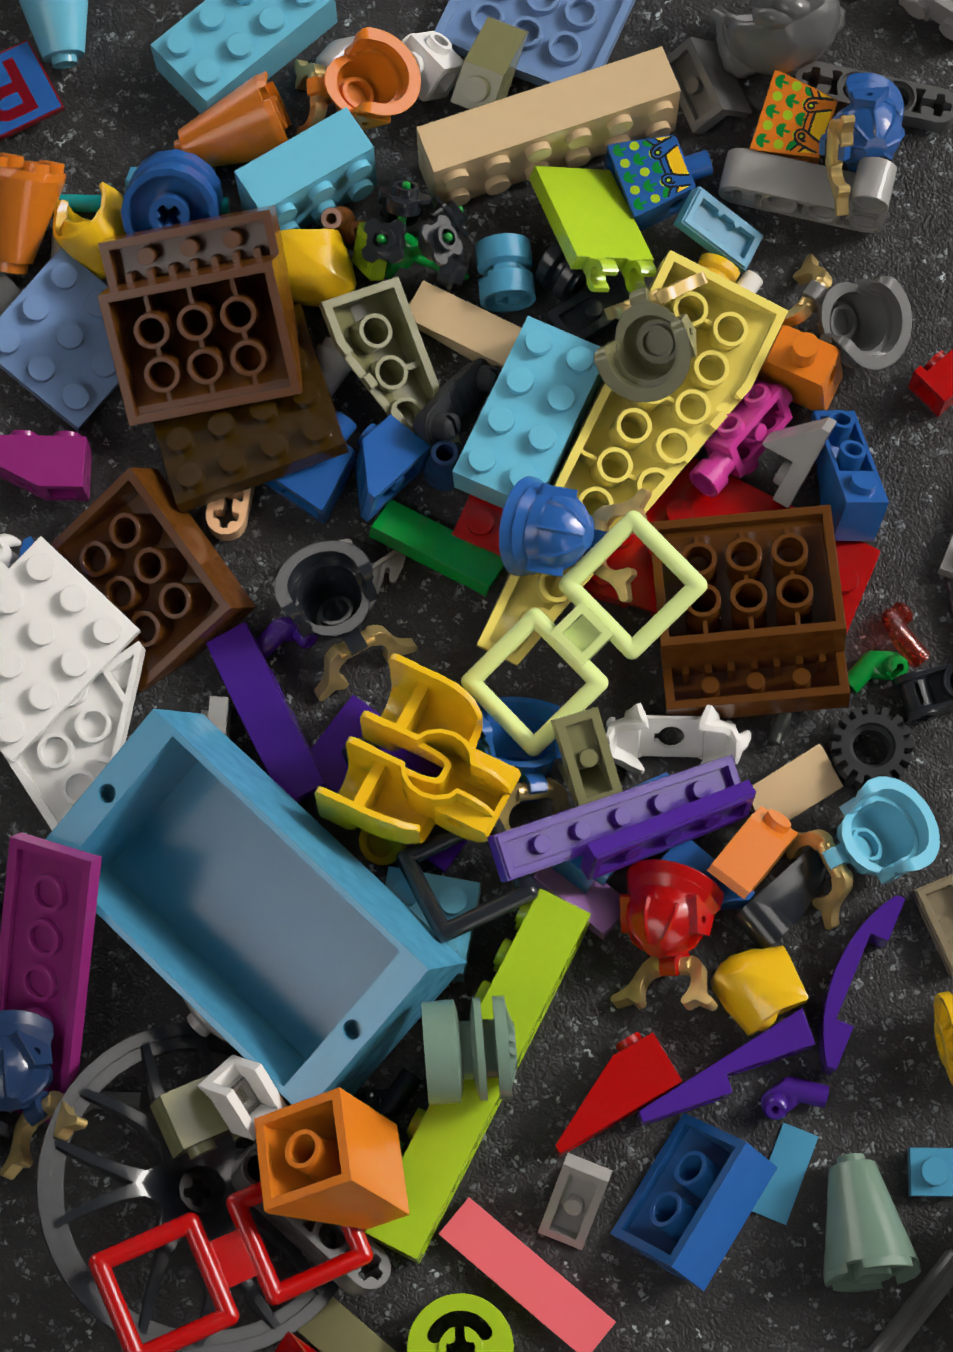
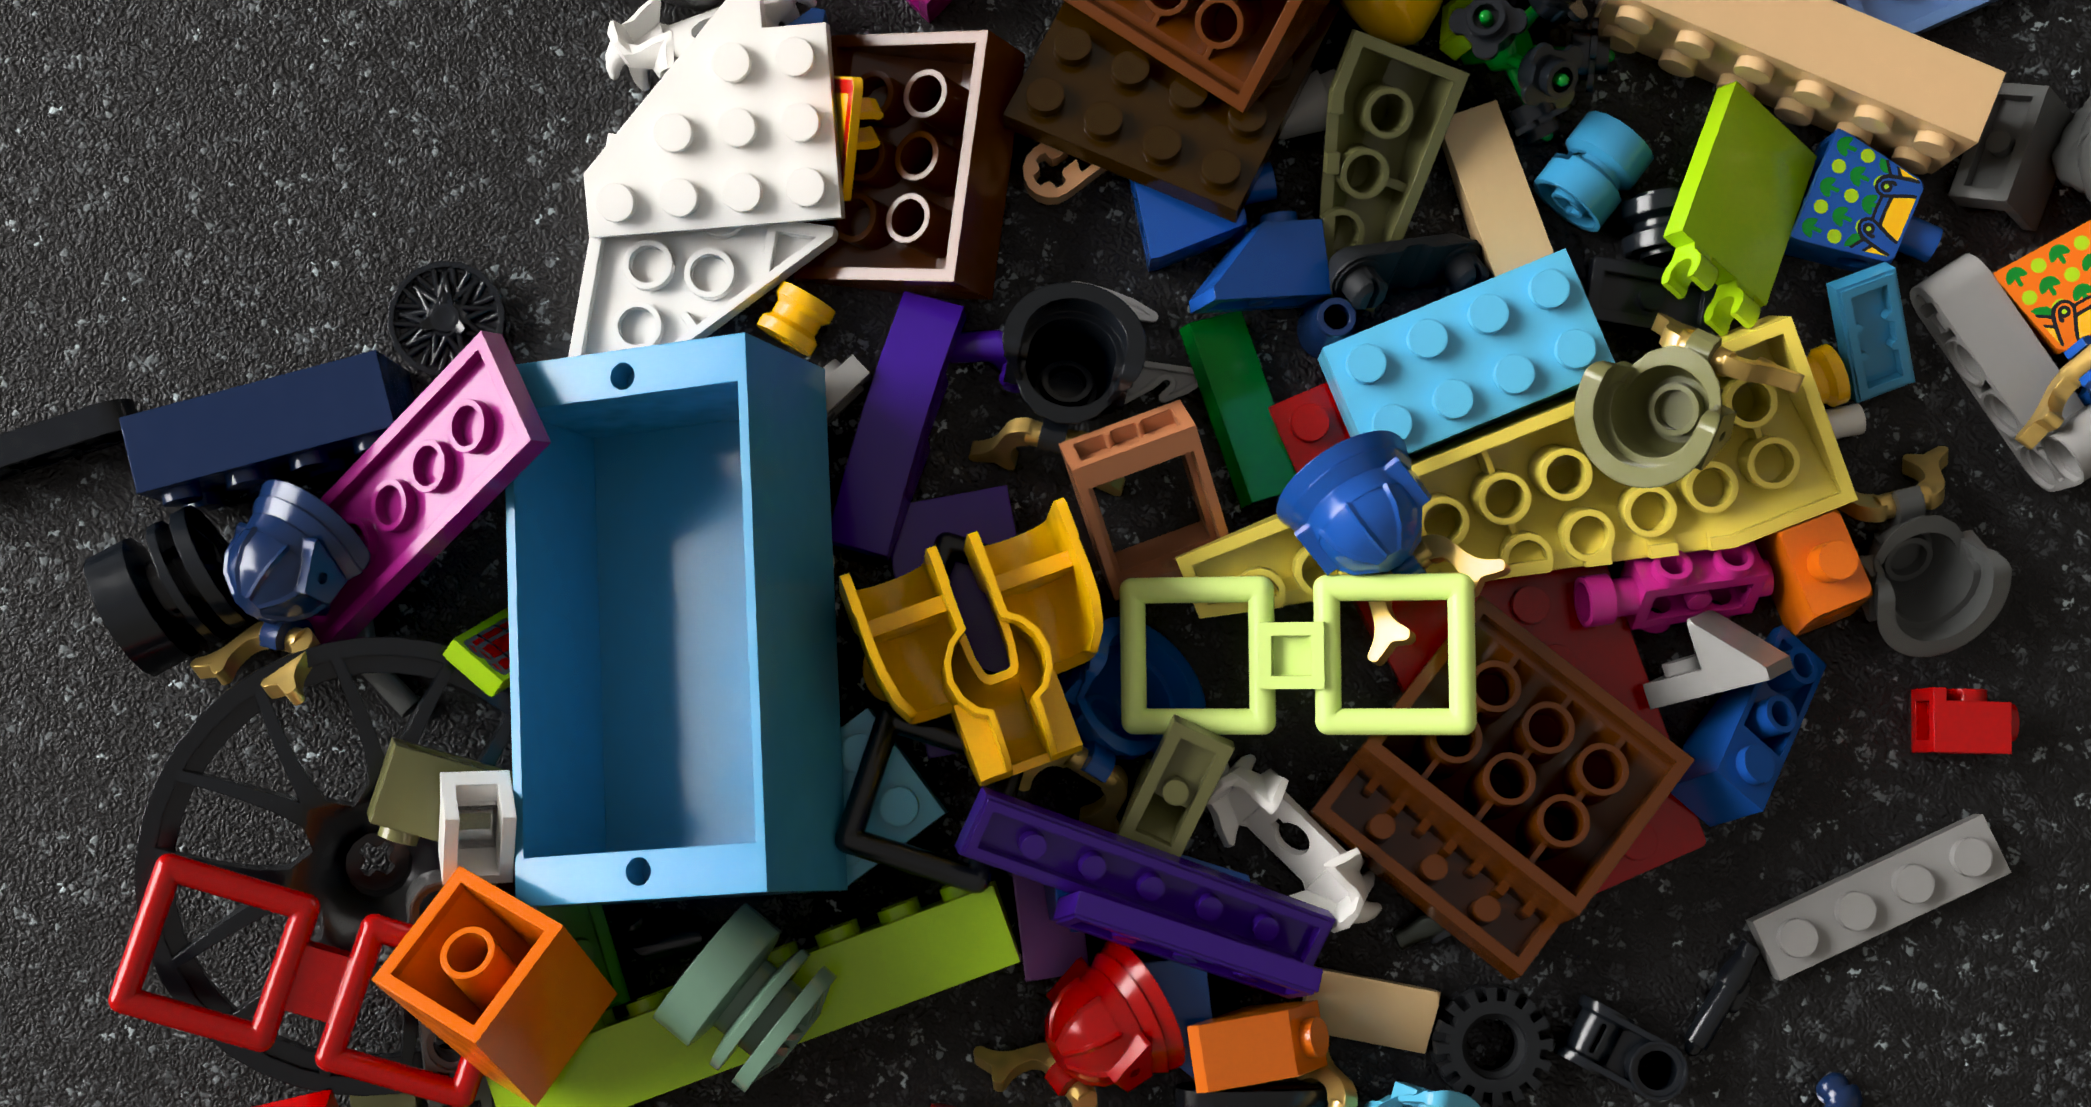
camera: 40 degrees right, 10 degrees up
(94, 570) = (850, 110): none -> yellow piece
(159, 697) = (796, 318): none -> yellow wheel
(162, 1016) = (484, 654): none -> tile
(405, 601) = (1129, 448): none -> nougat window
(876, 666) = (1584, 962): green arm -> none
(901, 636) = (1639, 955): clear red arm -> none

